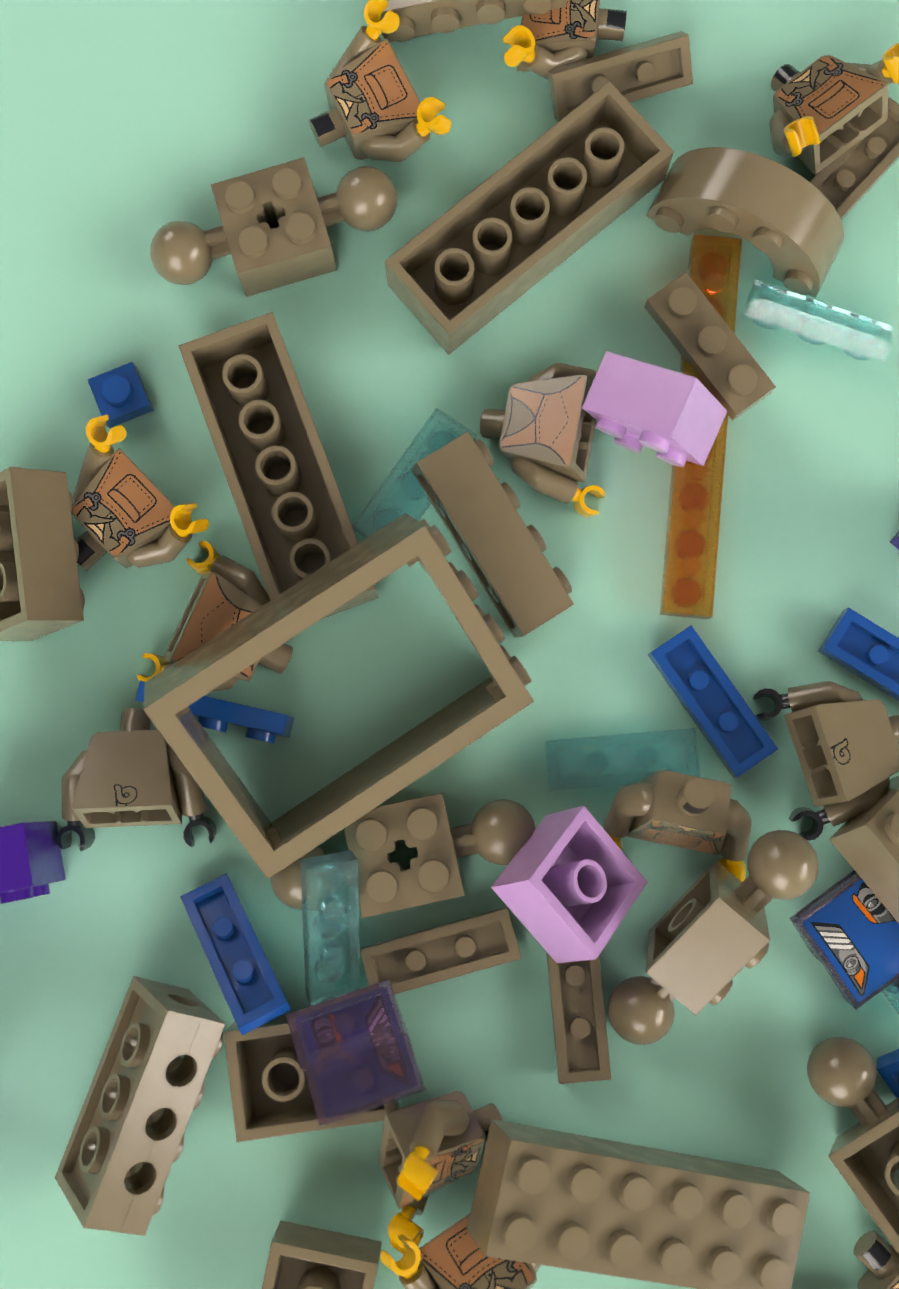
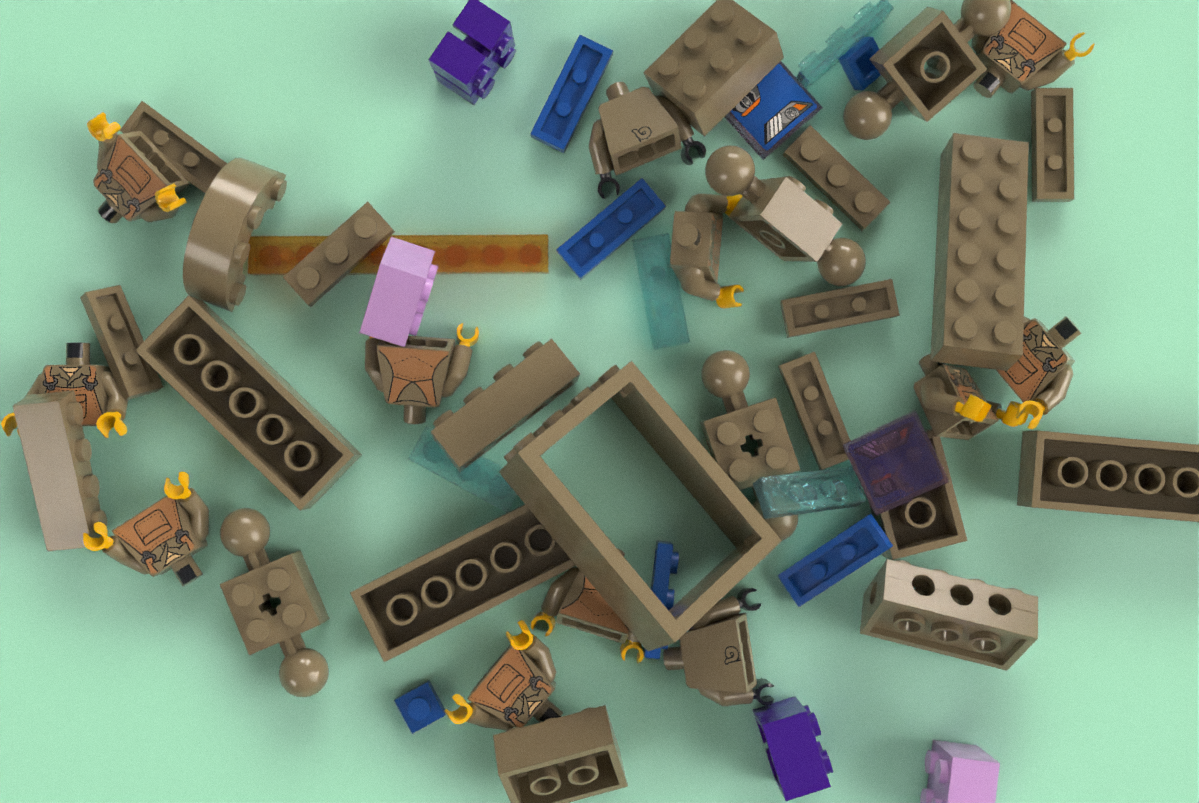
camera: 100 degrees left, 5 degrees up
(570, 885) = (760, 321): lavender brick -> none
(756, 1017) = (836, 178): none -> dark tan plate
(818, 322) = (308, 172): clear light blue plate -> none

